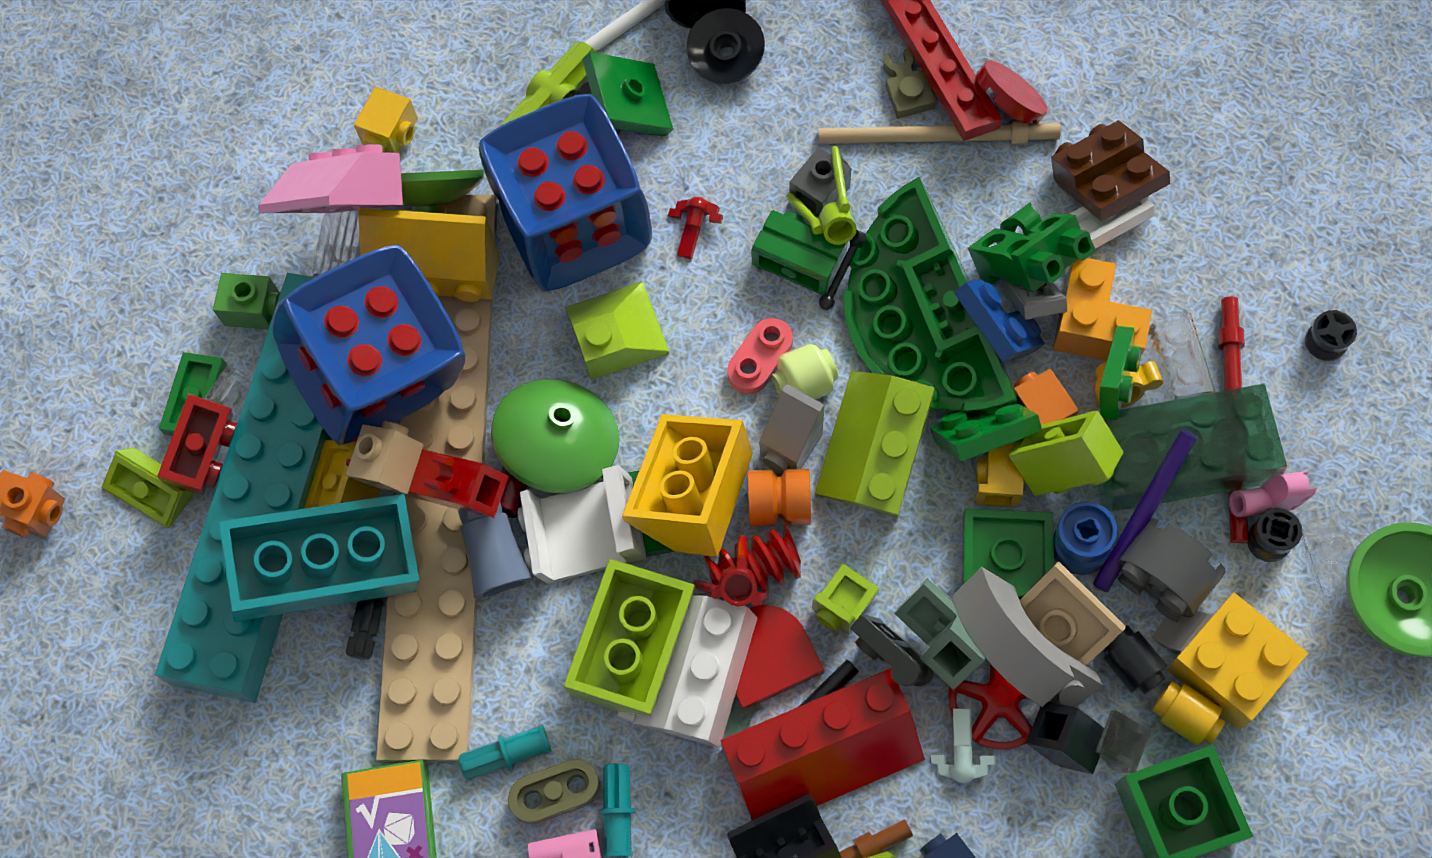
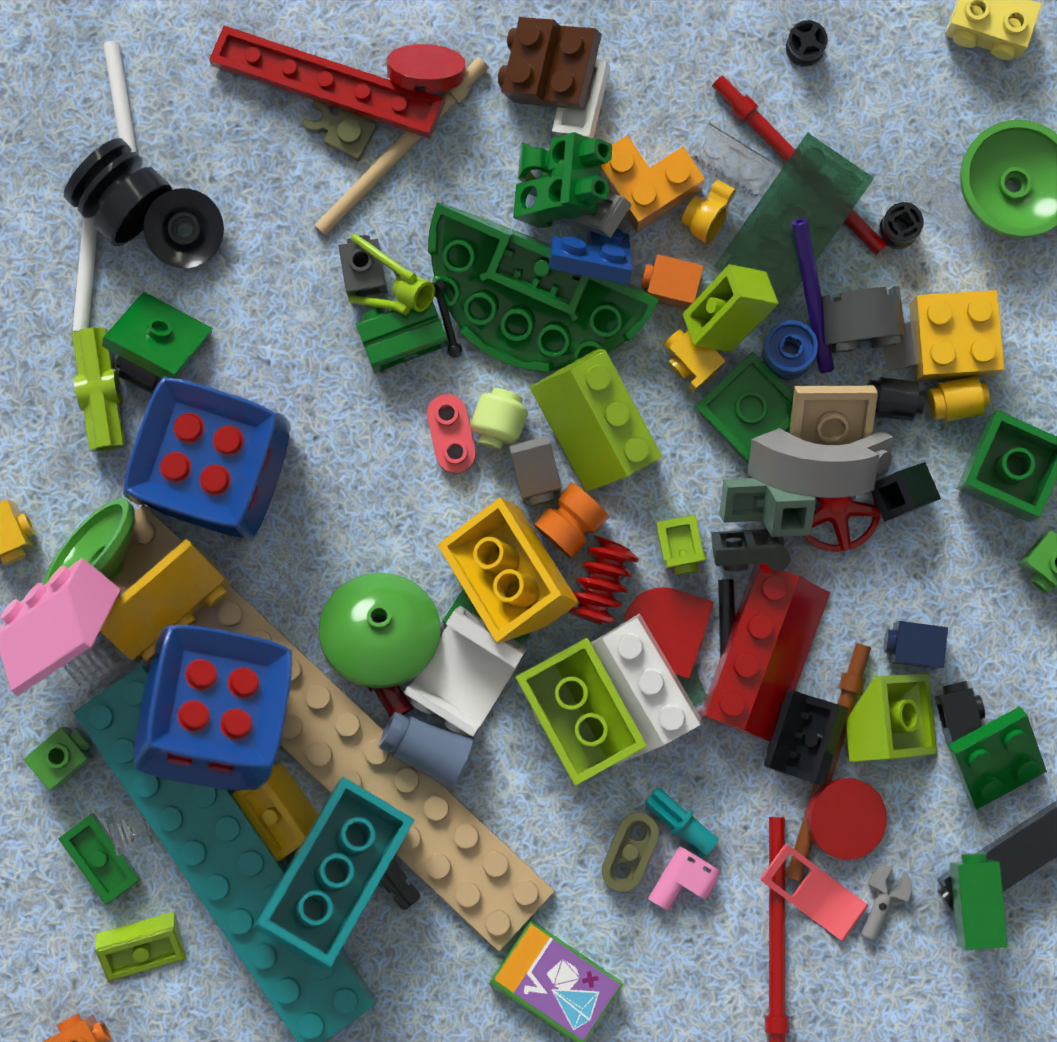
camera: 50 degrees left, 15 degrees up
(196, 445) = (155, 889): red brick -> none
(385, 457) = (306, 767): tan brick -> none
(456, 483) = (341, 747): red brick -> none
(504, 752) = (572, 861): teal axle -> none
(617, 330) = (334, 513): lime slope -> none
(696, 209) = (295, 371): red piece -> none
(736, 583) = (617, 610): red plant -> none
(963, 769) = (858, 574): light aqua piece -> none
(978, 432) = (660, 343): green plate -> none
(1116, 382) = (717, 228): green plate -> none
(1122, 743) = (939, 460): clear smoke slope -> none
(1281, 491) = (875, 201): bright pink piece -> none

